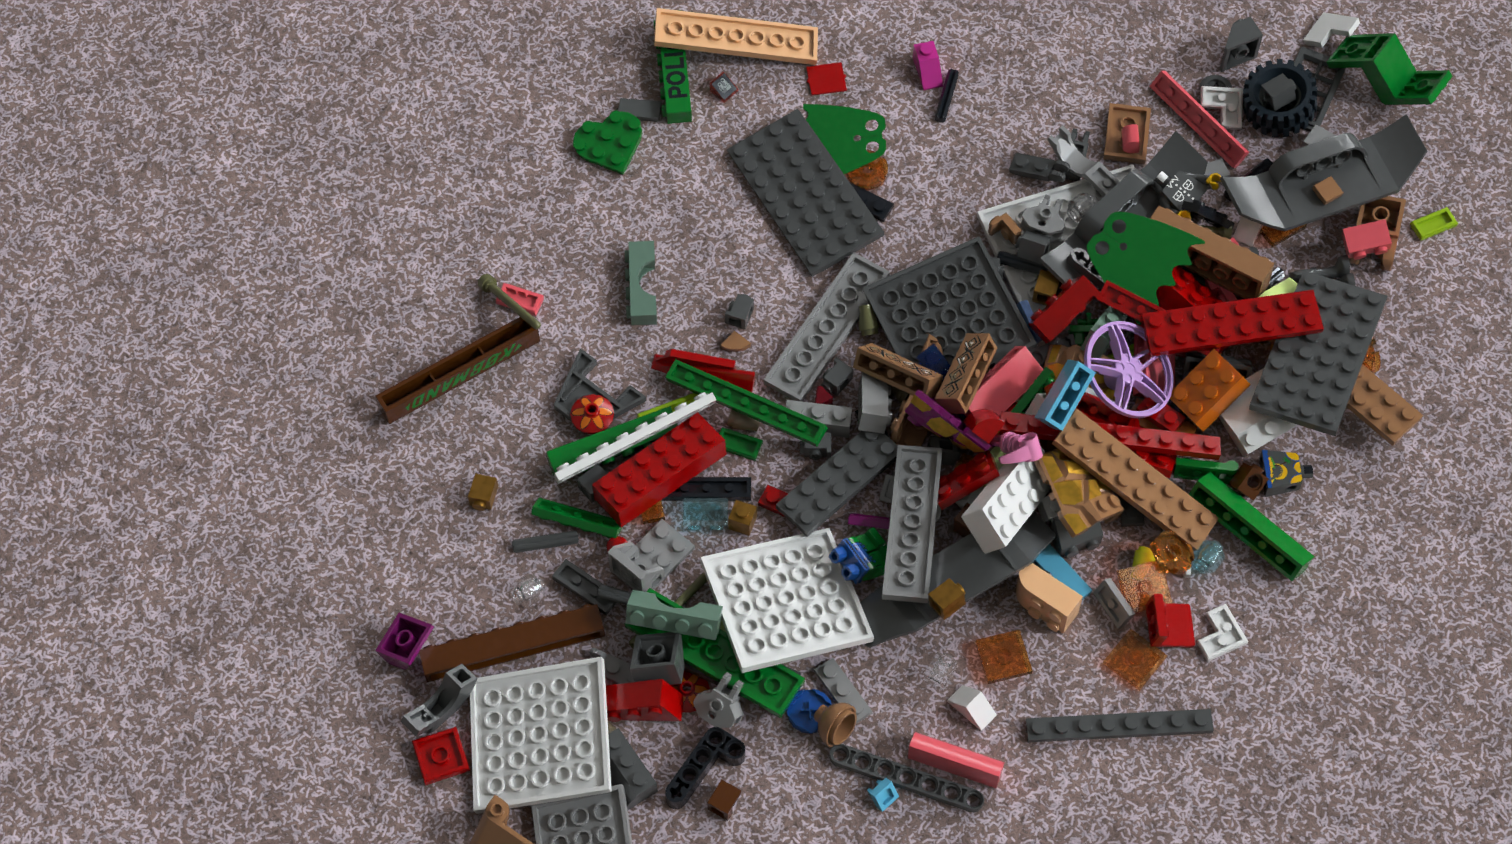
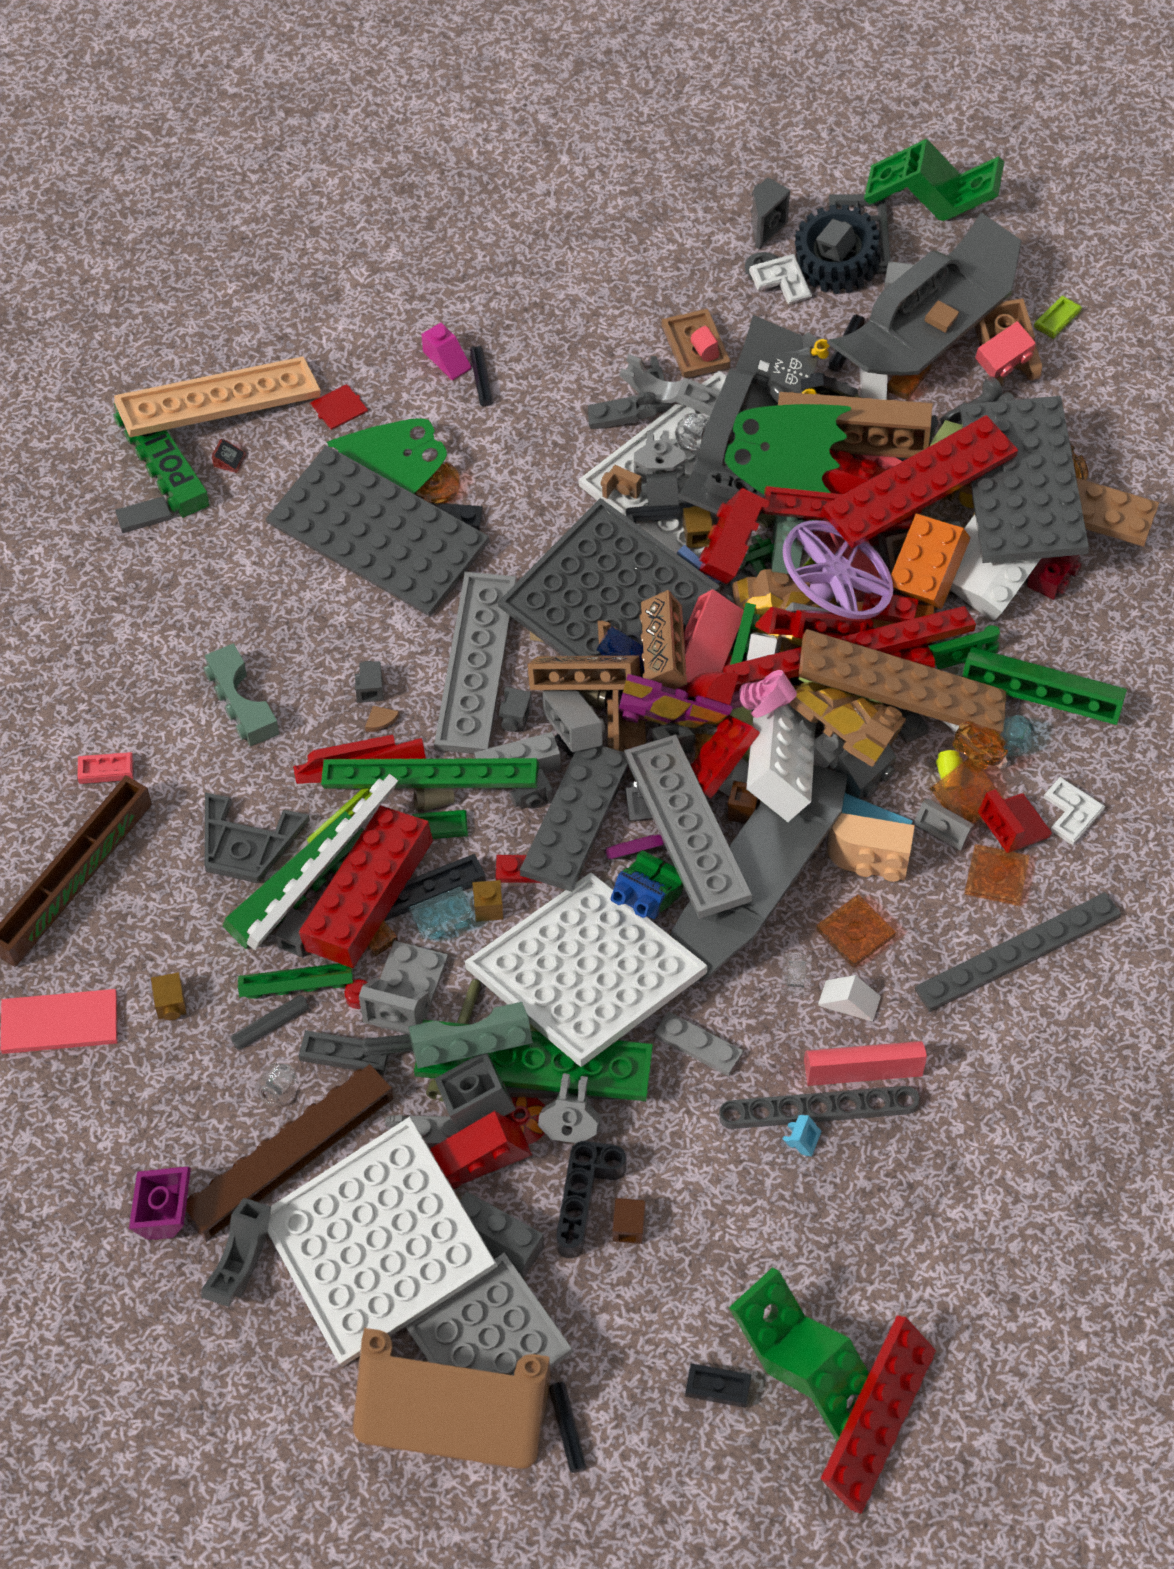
camera: 25 degrees left, 5 degrees down
(400, 477) = (58, 1021): none -> coral tile
(440, 756) = (266, 1318): red plate -> none
(489, 284) = (60, 765): olive piece -> none
(592, 422) = (255, 867): red dish -> none
(610, 142) = (127, 561): green plate -> none
(803, 708) = (673, 1081): blue tile -> none
(823, 396) = (510, 734): dark red slope -> none
(835, 722) = (711, 1078): medium nougat piece -> none
(867, 320) = (519, 637): olive cone -> none
(947, 598) = (772, 886): pearl gold brick -> none
(1065, 394) = (789, 617): medium azure brick -> none
(1199, 119) = (763, 301): coral plate -> none
(1240, 479) = (1017, 639): reddish brown brick -> none
(1283, 472) = (1043, 618): torso -> none
(1308, 441) = (1052, 575): none -> dark red brick
(1328, 25) = (846, 162): white tile -> none

